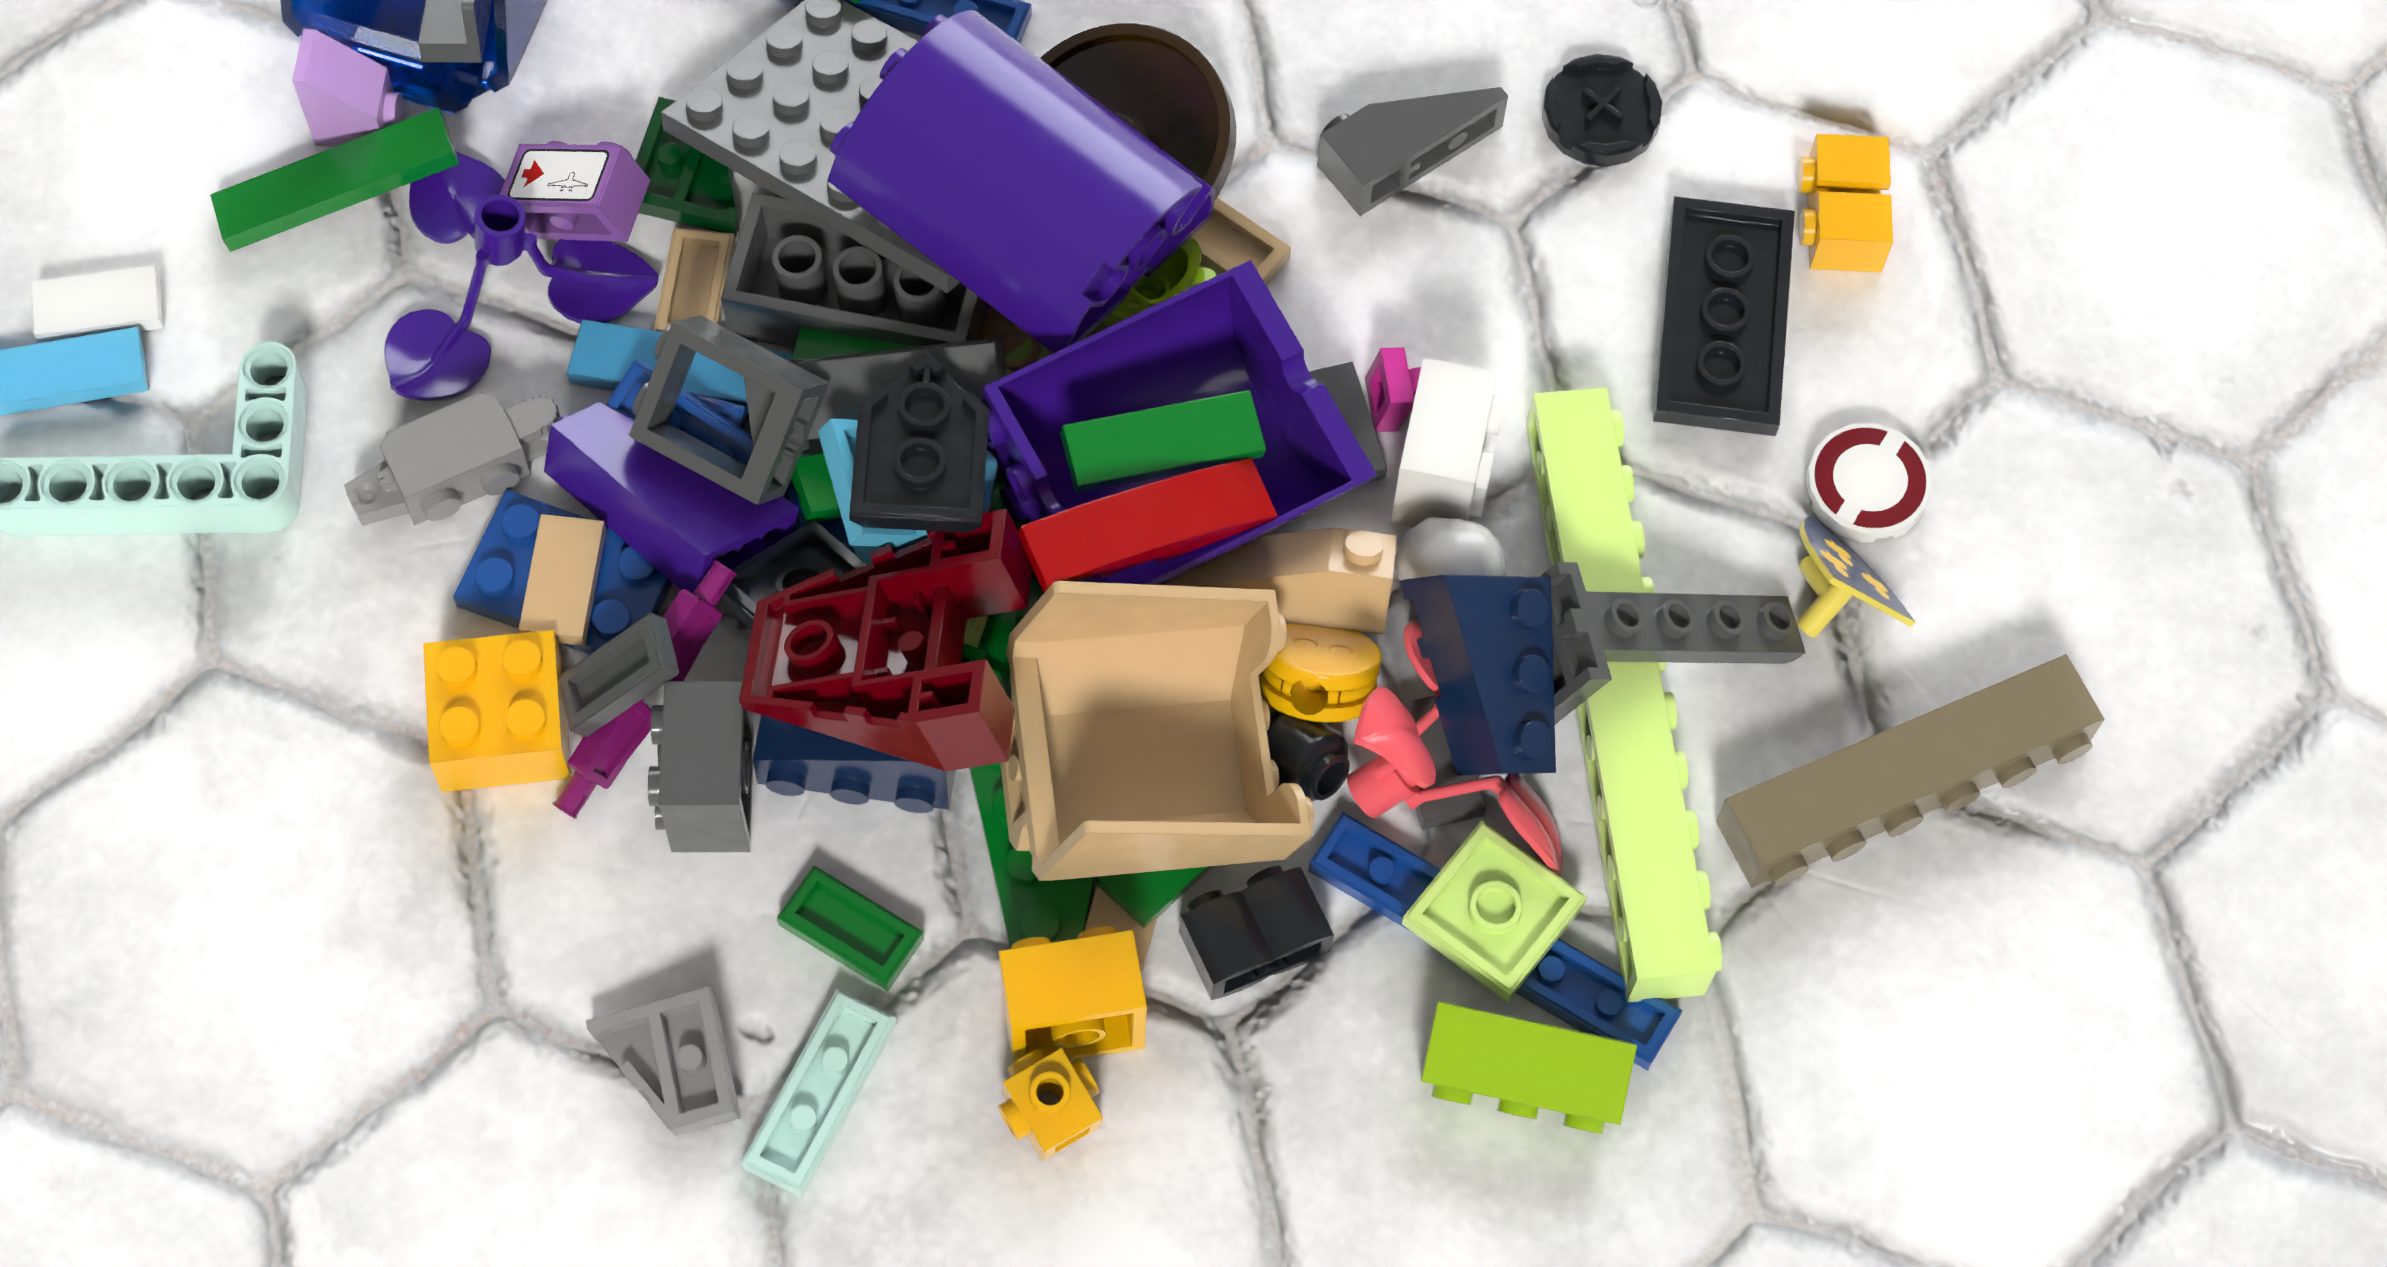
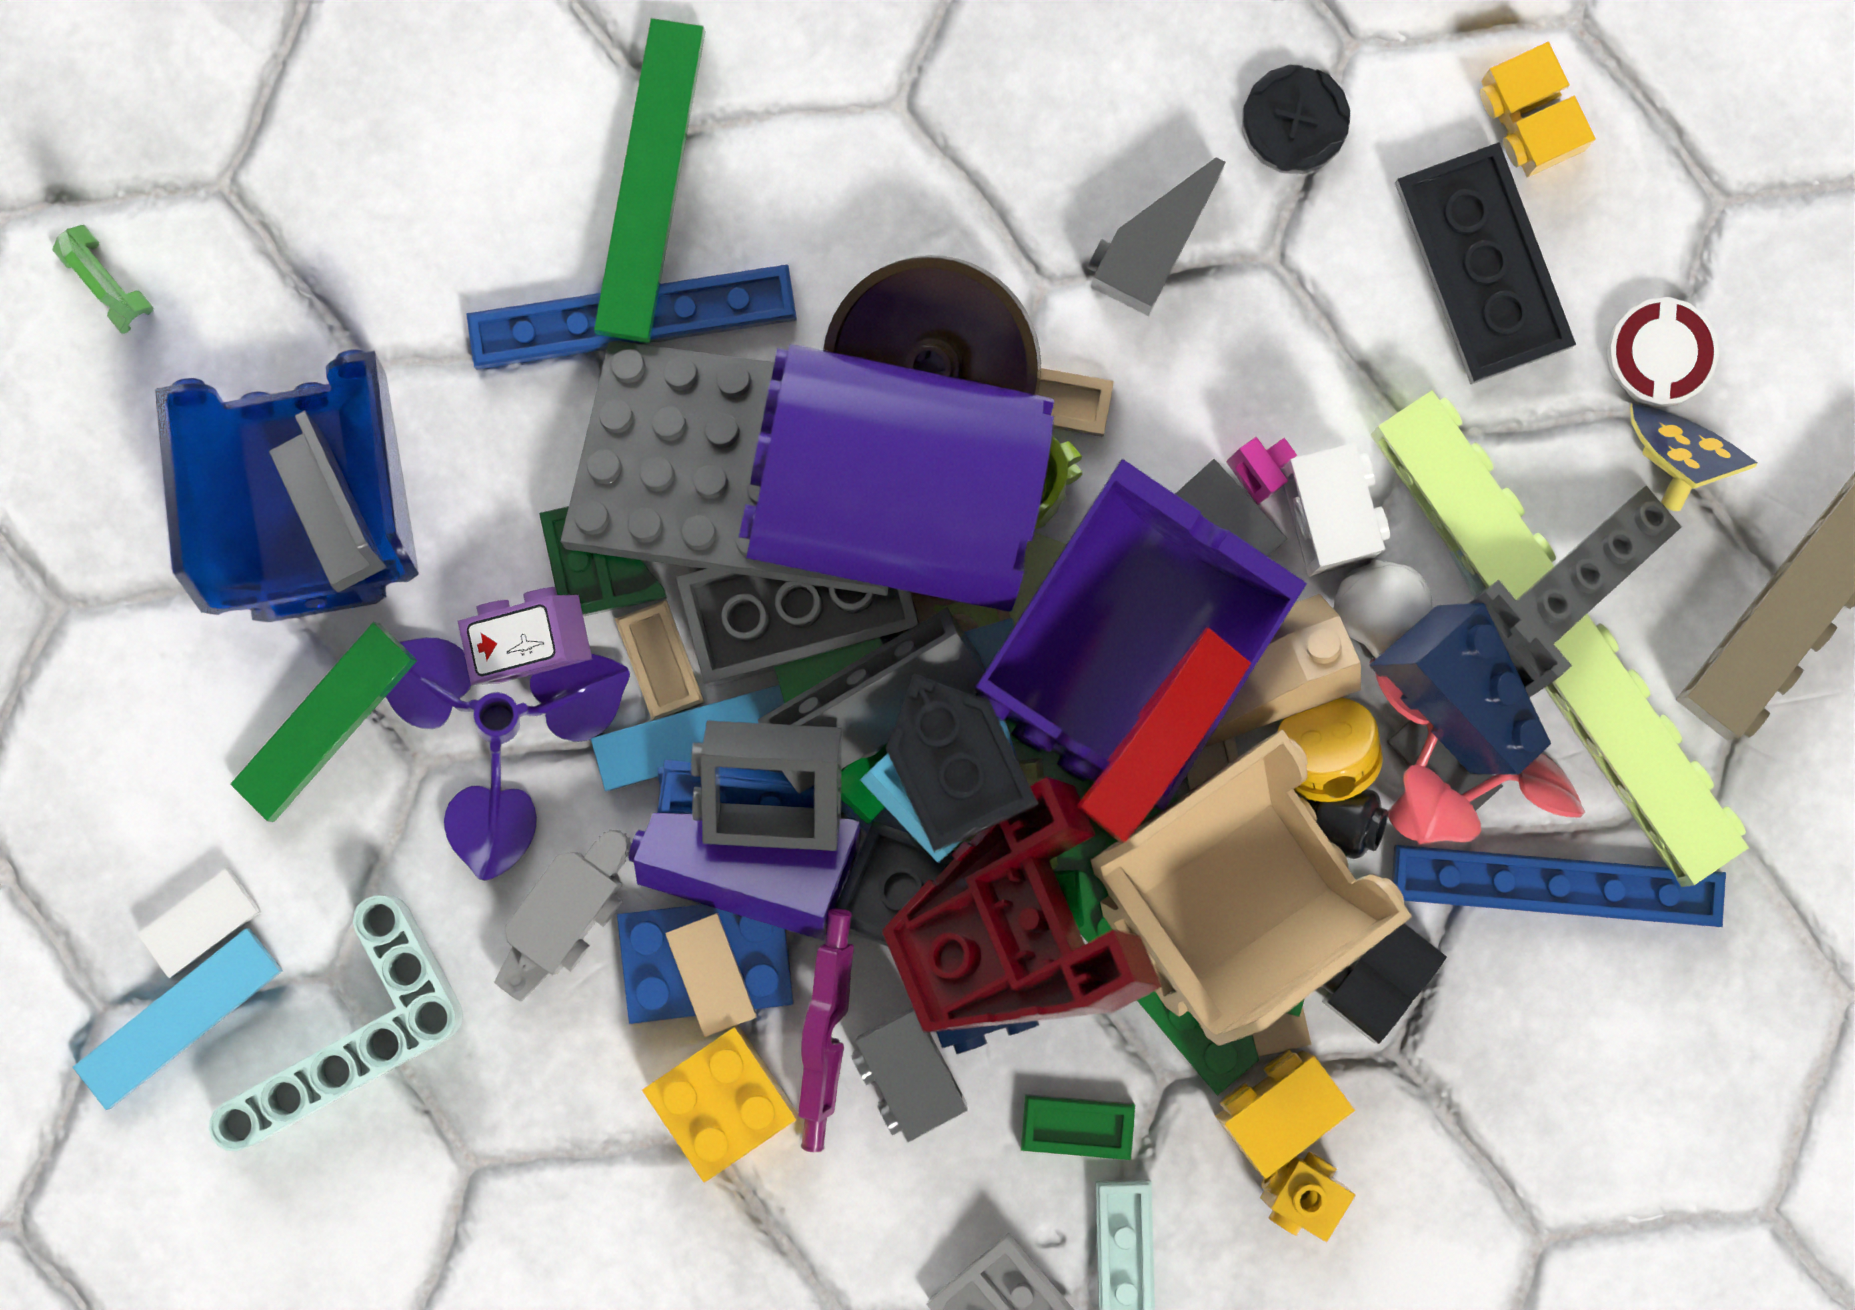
camera: 20 degrees left, 20 degrees up
(342, 91) = (292, 648): lavender slope -> none
(618, 674) = (810, 1045): dark grey tile -> none
(1162, 441) = (1136, 654): green tile -> none
(1494, 910) = (1552, 870): yellowish green tile -> none
(1528, 1066) = (1637, 981): lime brick -> none

